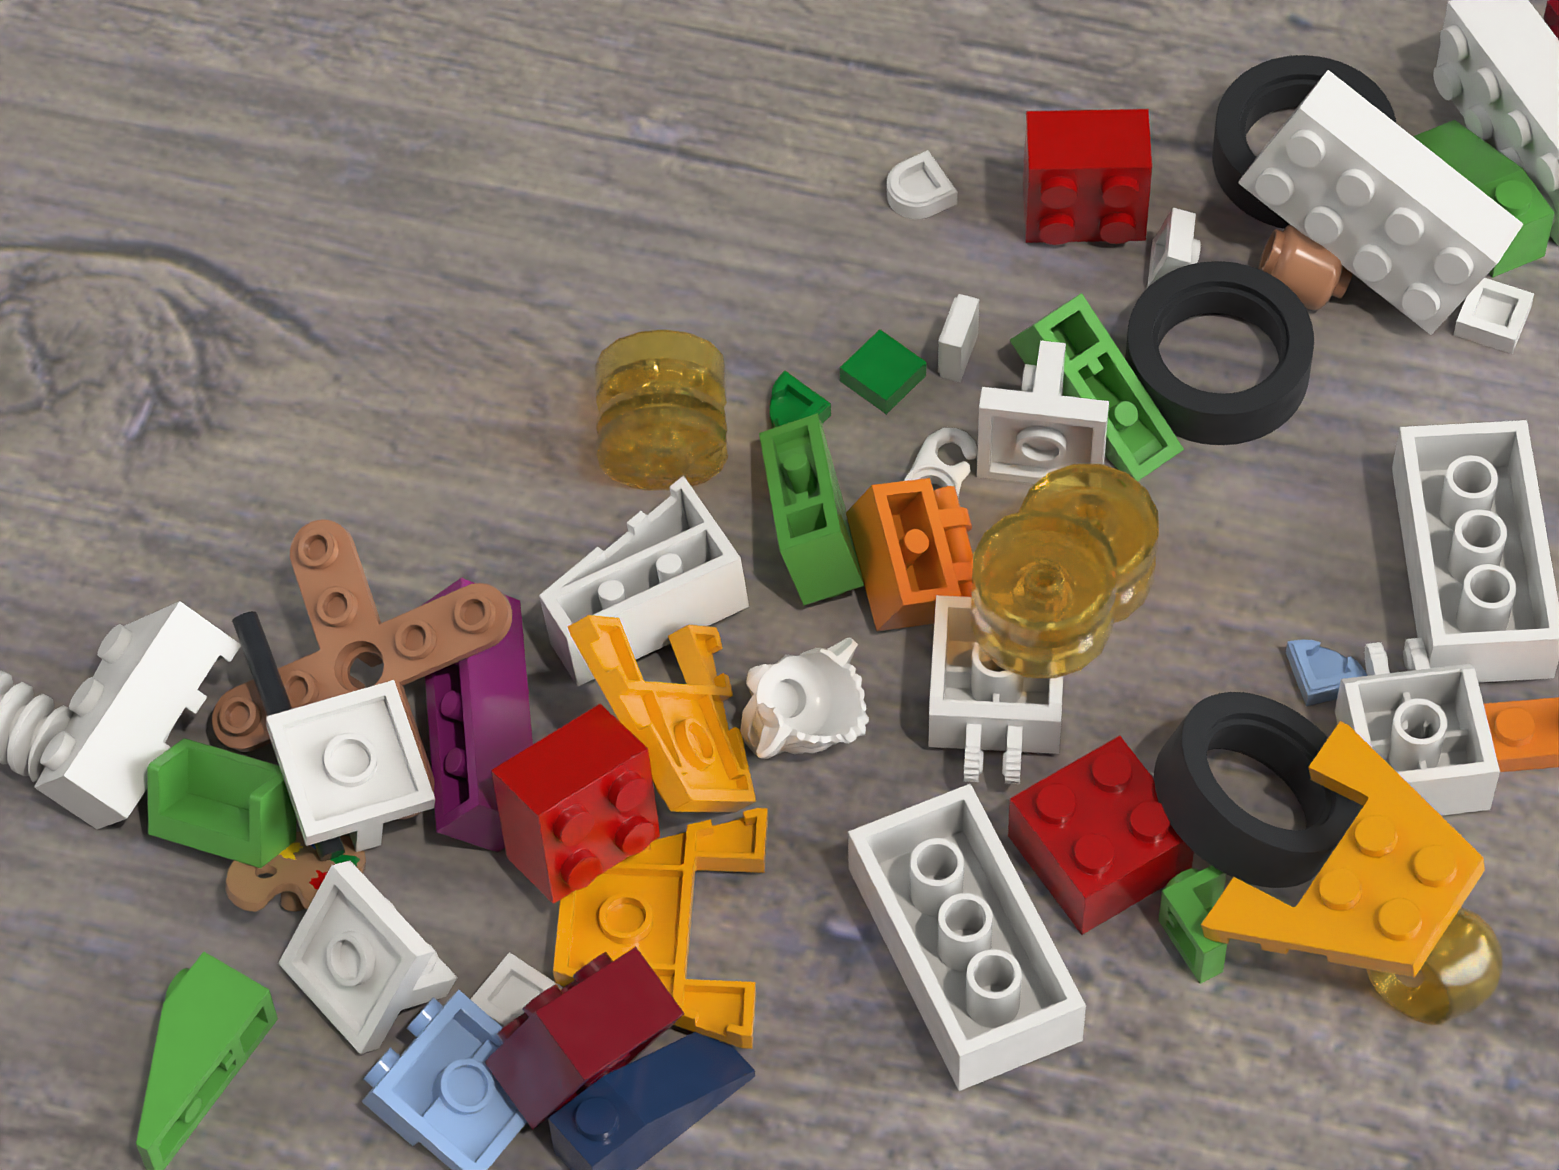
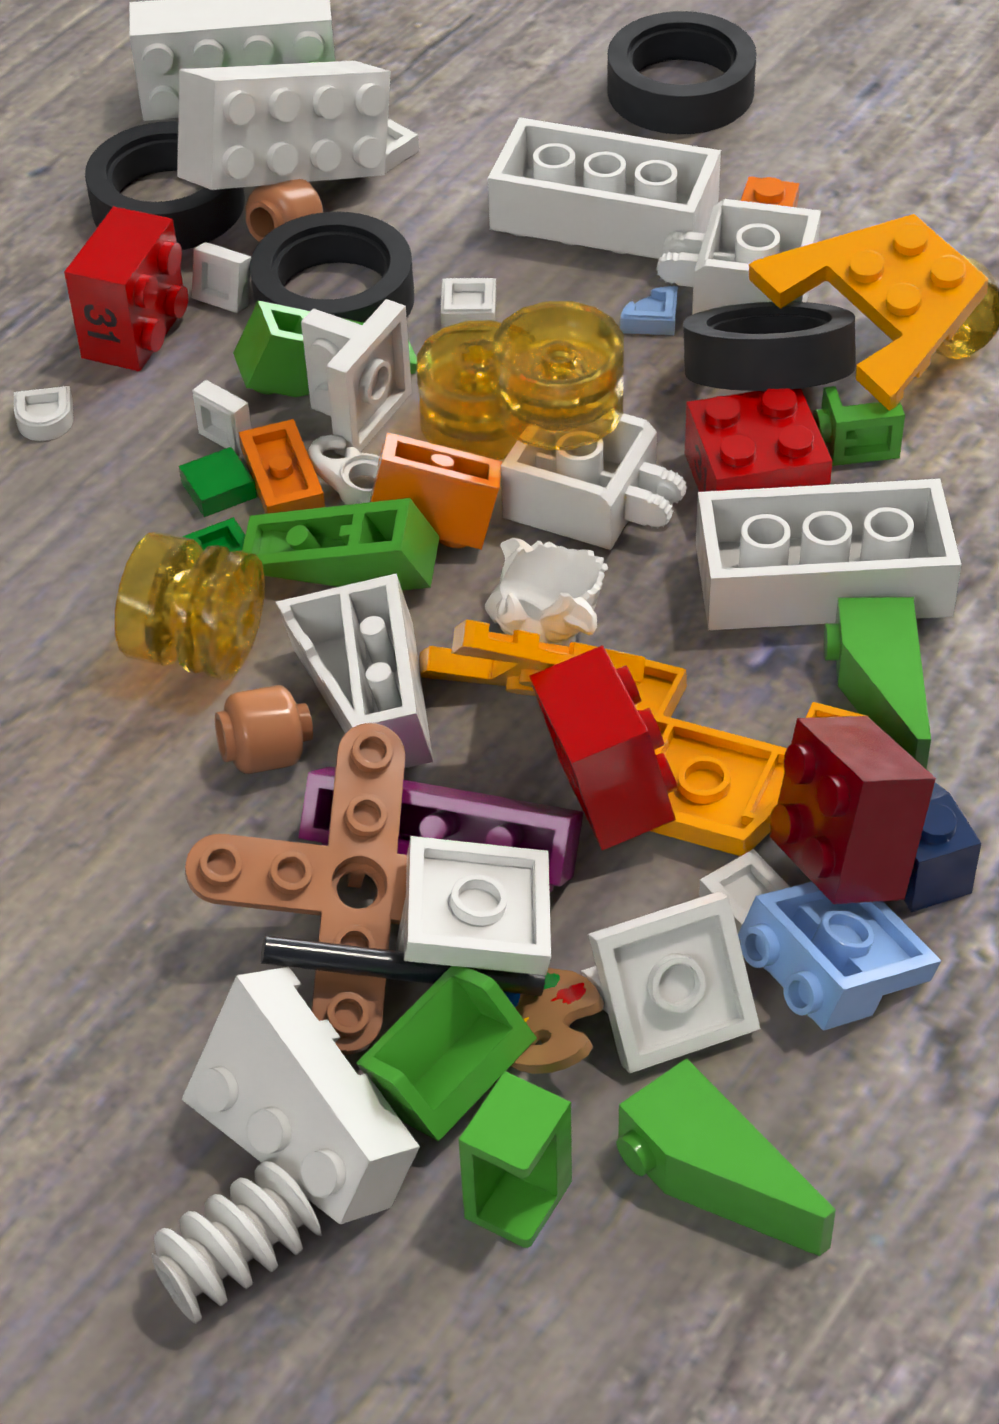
camera: 70 degrees left, 10 degrees down
(132, 889) = (516, 1159): none -> bright green panel
(549, 530) = (262, 729): none -> nougat head
(836, 1038) = (882, 667): none -> bright green slope
(901, 420) = (281, 468): none -> orange plate
(1258, 492) = (467, 300): none -> white tile

